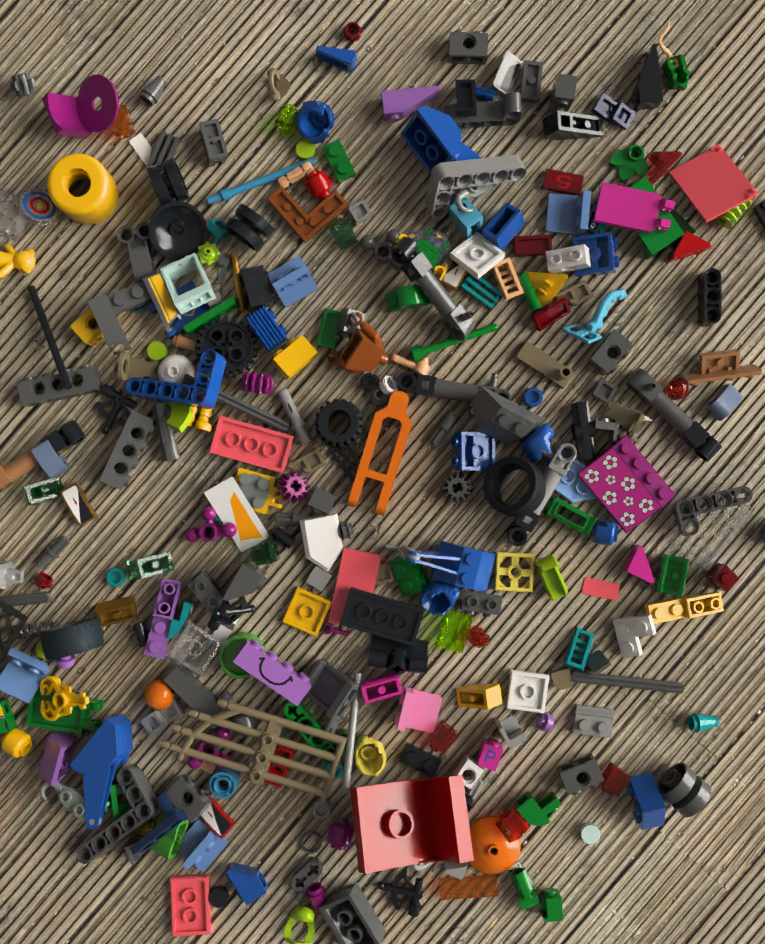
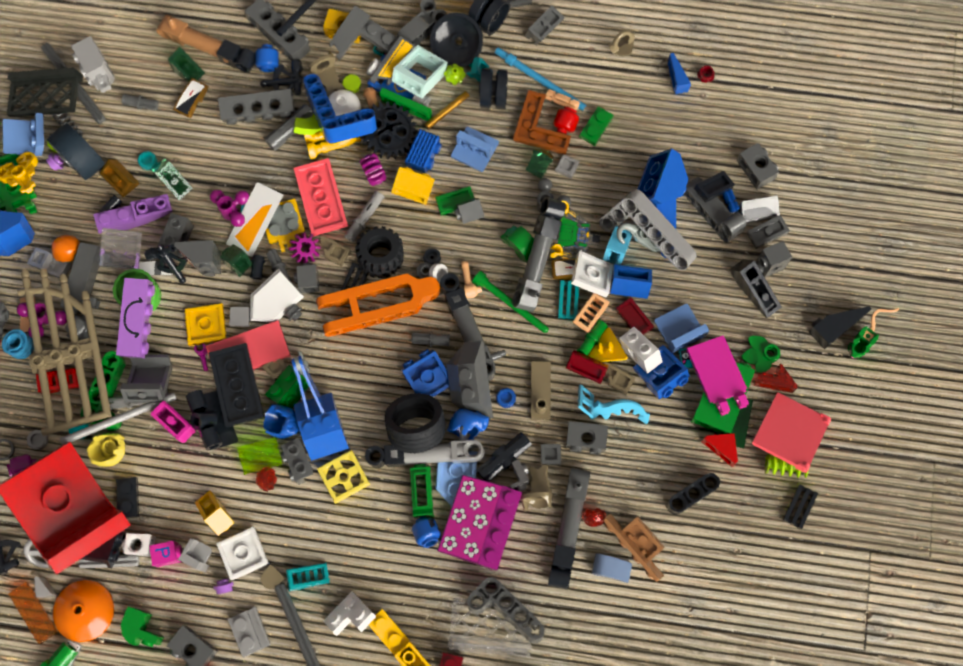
camera: 55 degrees right, 15 degrees down
(43, 581) = (112, 109): dark red plate -> none
(49, 460) = (211, 57): sand blue panel -> none
(83, 412) = (266, 58): none -> blue head
(154, 321) = (373, 66): none -> white tile
(178, 622) = (147, 229): teal slope -> none
(225, 263) = (455, 92): dark grey hand -> none
(245, 407) = (347, 175): dark grey axle -> none
(255, 287) = (450, 122): black brick -> none
(285, 119) = (601, 68): clear neon green head -> none
(305, 149) = (588, 96): lime tile -> none
(314, 121) = (613, 86): blue helmet -> none
(362, 350) = (453, 232): dark orange torso -> none
(403, 102) = (673, 137): medium lavender slope -> none
(418, 710) = (170, 466): bright pink bracket -> none
(442, 737) = (158, 503): clear red brick -> none
(455, 480) = (381, 375): dark grey gear -> none
(512, 824) = (111, 612): clear red brick -> none
(551, 577) = (357, 508): lime animal -> none
(563, 182) = (704, 309): dark red tile -> none
(597, 662) = (305, 600): dark grey slope -> none
(600, 588) = (375, 564): coral sticker -> none
(613, 112) = (793, 313): slope -> none
(638, 565) = (414, 581): dark pink slope -> none
(672, 575) = (424, 617): green bracket -> none

